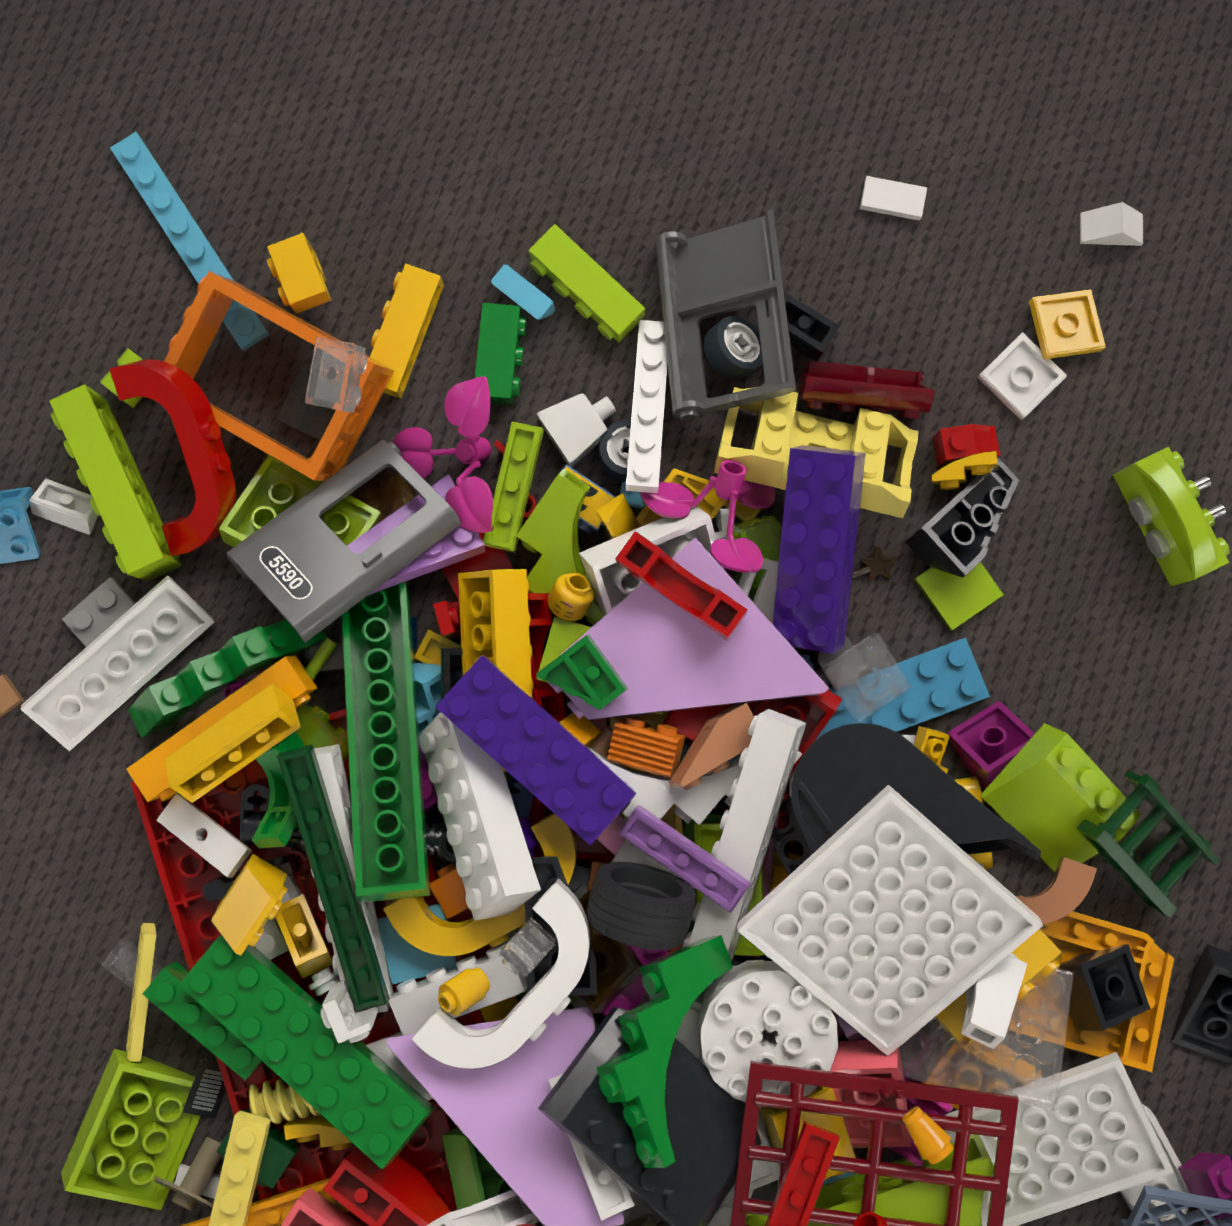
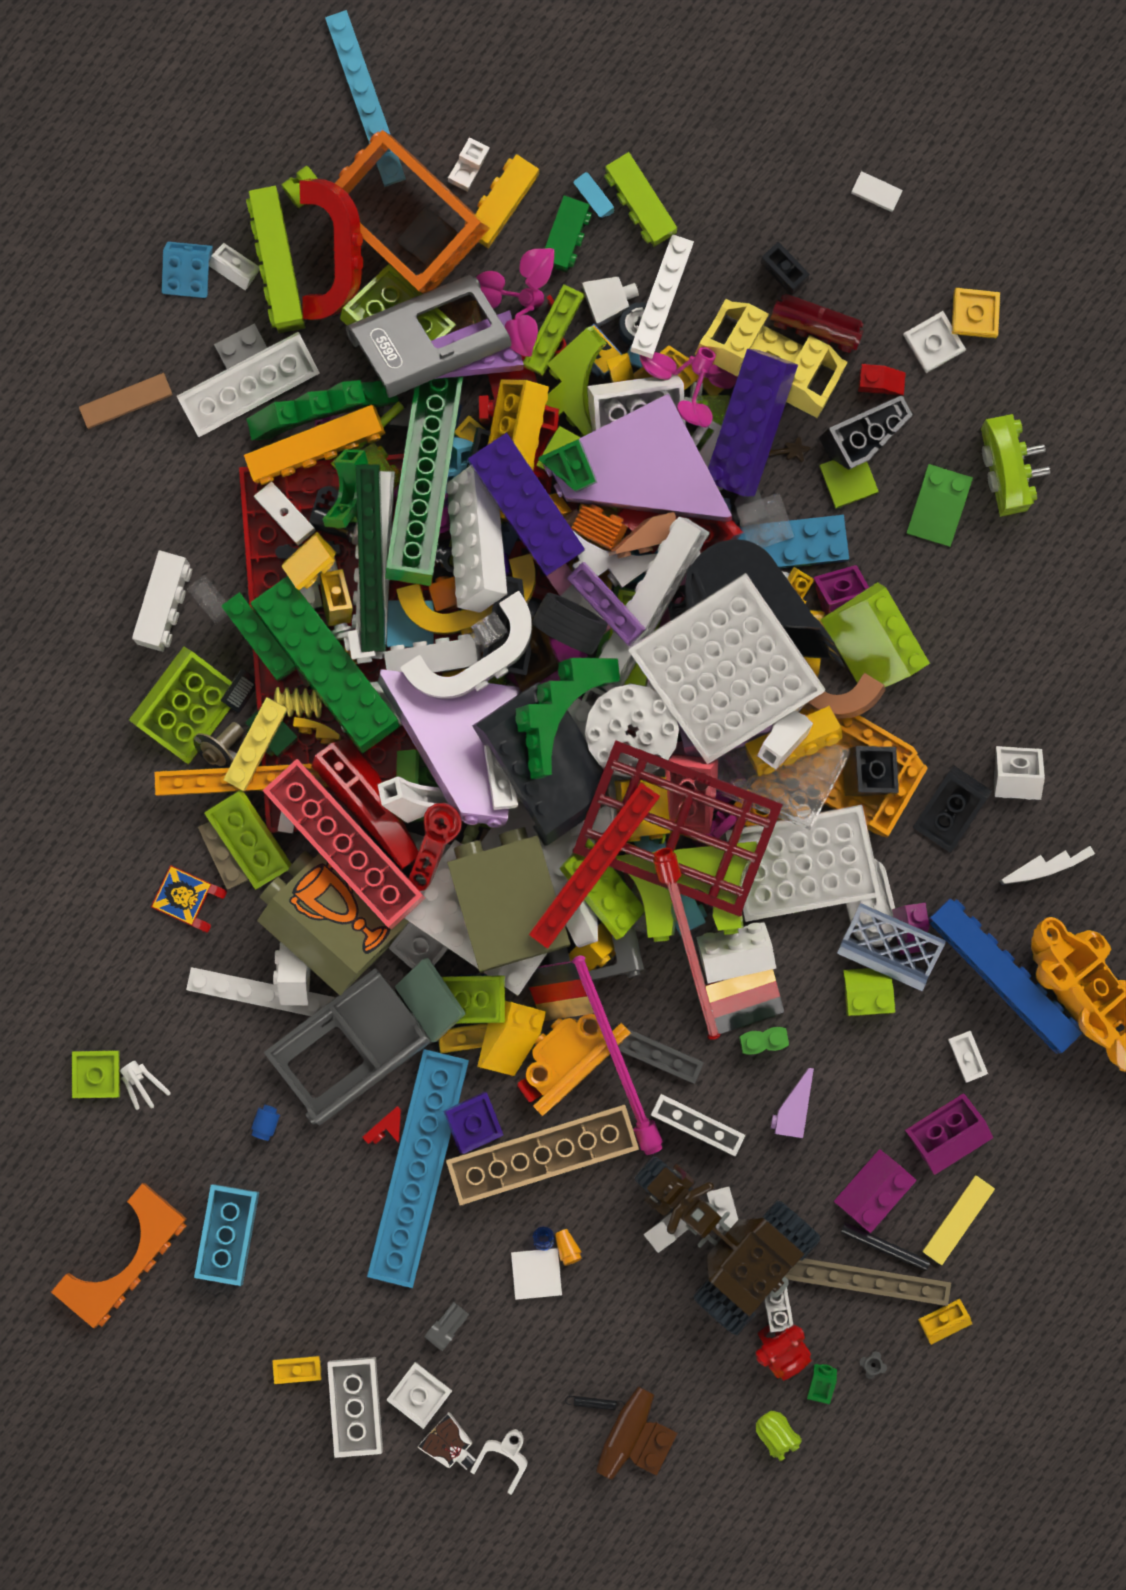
camera: 15 degrees right, 0 degrees up
(65, 998) = (161, 601): none -> white brick
(139, 1002) = (213, 610): light yellow tile -> none
(232, 743) = (324, 452): yellow brick -> none
(298, 273) = (440, 141): yellow brick -> none
(336, 375) = (453, 223): clear brick -> none
(347, 294) = (468, 165): none -> white slope
(463, 991) = (438, 651): yellow brick -> none
(571, 596) = (574, 414): yellow head -> none
(680, 586) = (650, 424): red arch -> none
(714, 277) = (730, 217): dark grey piece -> none
(733, 347) = (733, 271): black wheel -> none
(928, 1137) = (716, 809): light orange cone -> none
(955, 472) = (866, 397): yellow slope -> none
(1090, 591) = (939, 505): none -> bright green slope
(1112, 226) = (1028, 250): white slope -> none
(1120, 854) = (917, 702): dark green fence -> none

